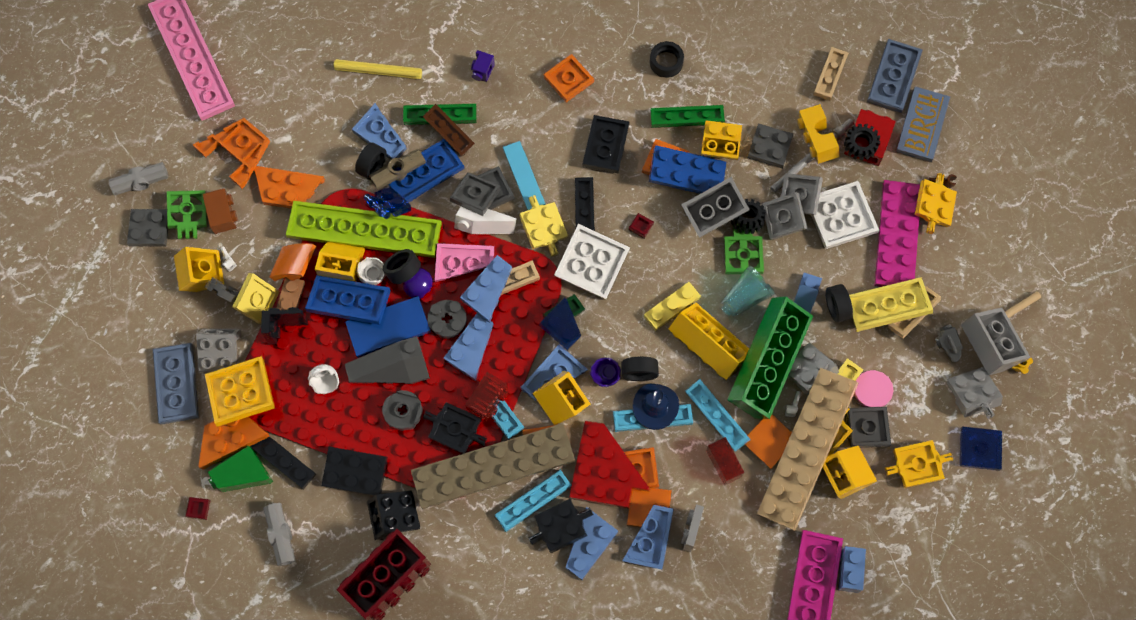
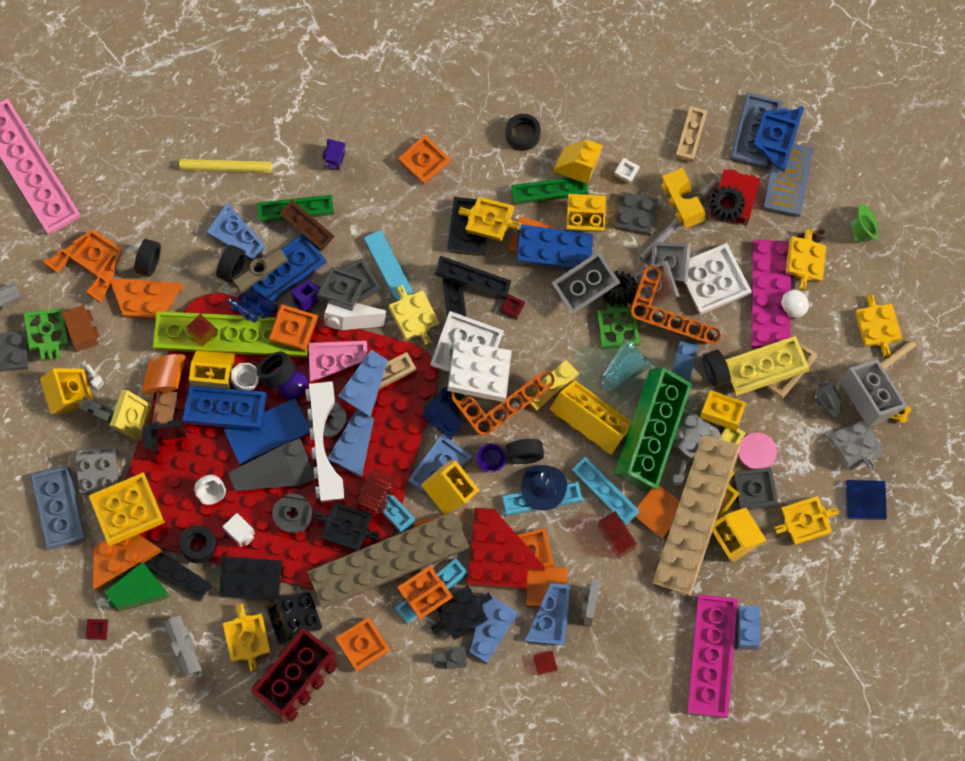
camera: 10 degrees left, 0 degrees up
(291, 148) = (147, 257): none -> black tyre
(296, 424) = (197, 532): none -> black tyre
(333, 221) = (201, 330): none -> clear red brick
(343, 531) = (246, 638): none -> yellow plate
(348, 422) = (239, 530): none -> white brick
(423, 227) = (293, 328): none -> orange tile
(439, 198) = (305, 295): none -> dark purple brick
(442, 303) = (322, 402): none -> white arch
(458, 549) = (362, 644): none -> orange plate
(526, 502) = (424, 592): none -> orange slope
(549, 571) = (454, 657): none -> dark grey plate
(602, 284) = (479, 370): none -> white plate
(604, 193) = (472, 277): none -> black plate
(623, 320) = (508, 411): none -> orange beam
(626, 138) = (489, 218): none -> yellow plate
(640, 585) = (545, 663): none -> clear red plate
(719, 90) = (579, 160): none -> yellow slope
(764, 103) = (626, 170): none -> white plate
(793, 247) = (666, 315): none -> orange beam
(842, 345) = (723, 410): none -> yellow plate
(916, 80) = (777, 135): none -> blue wing
(922, 245) = (795, 303): none -> white hair
(996, 175) = (865, 225): none -> bright green piece
(1004, 274) = (878, 325): none -> yellow plate

